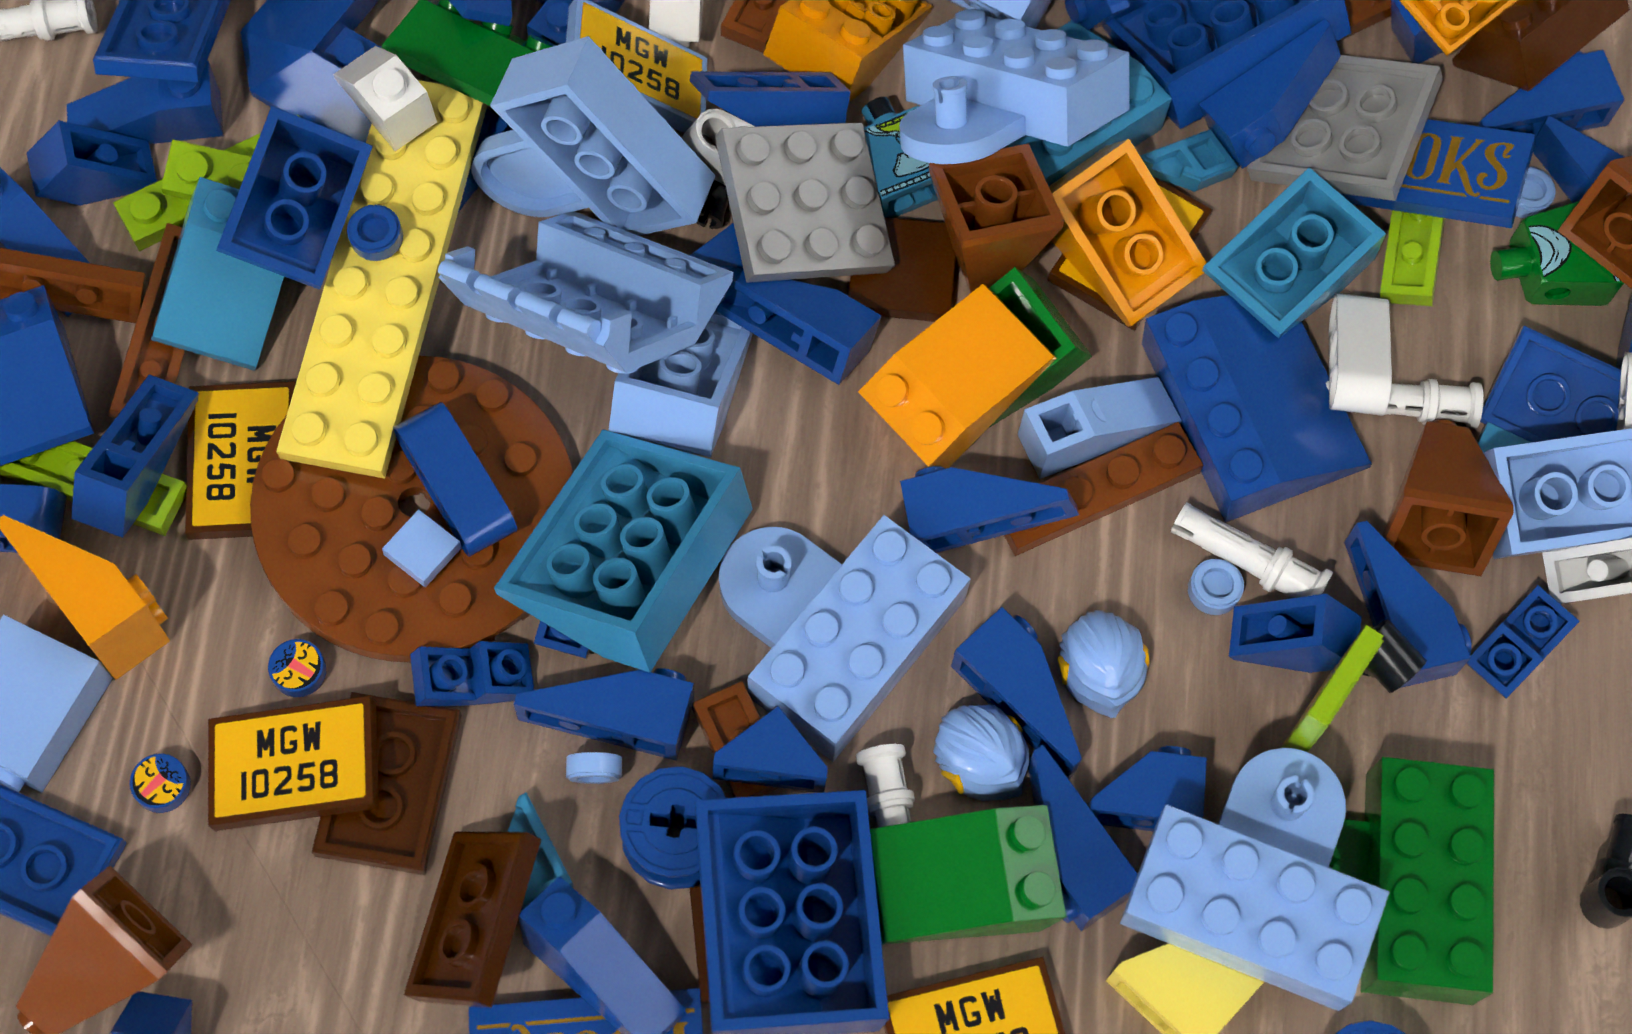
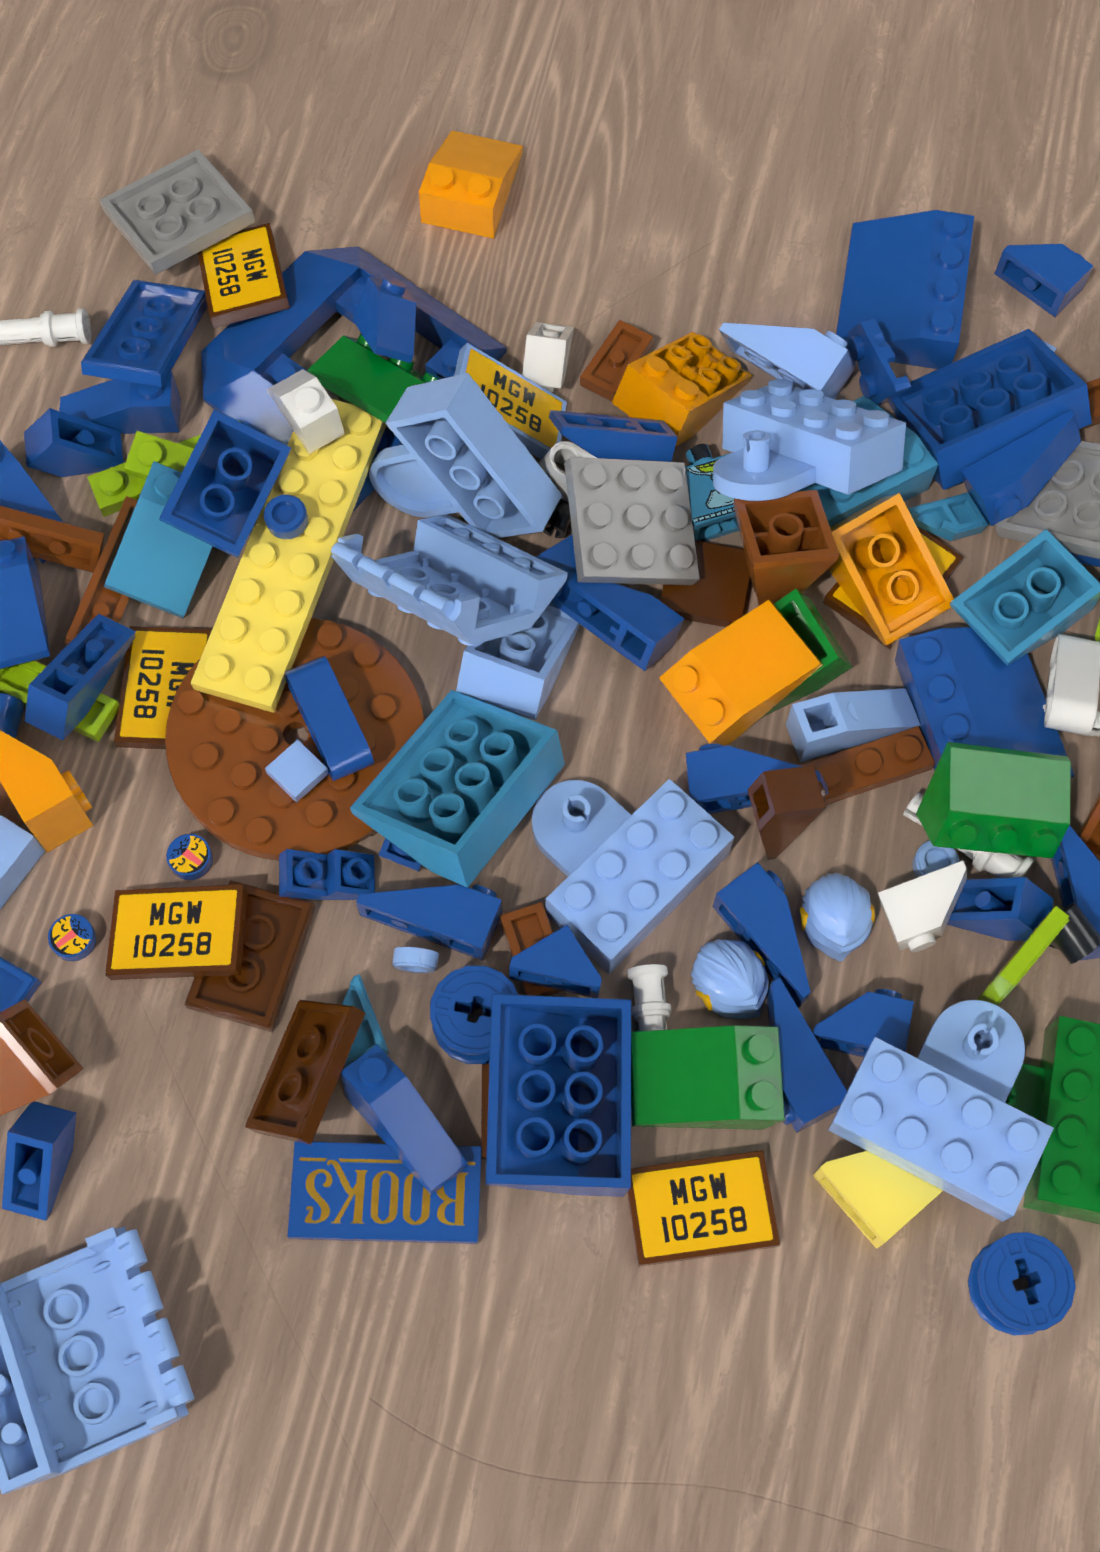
camera: 10 degrees right, 0 degrees up
(1029, 534) = (785, 805): none -> reddish brown slope
(1206, 641) = (923, 906): none -> white slope
(1283, 504) = (997, 801): none -> slope

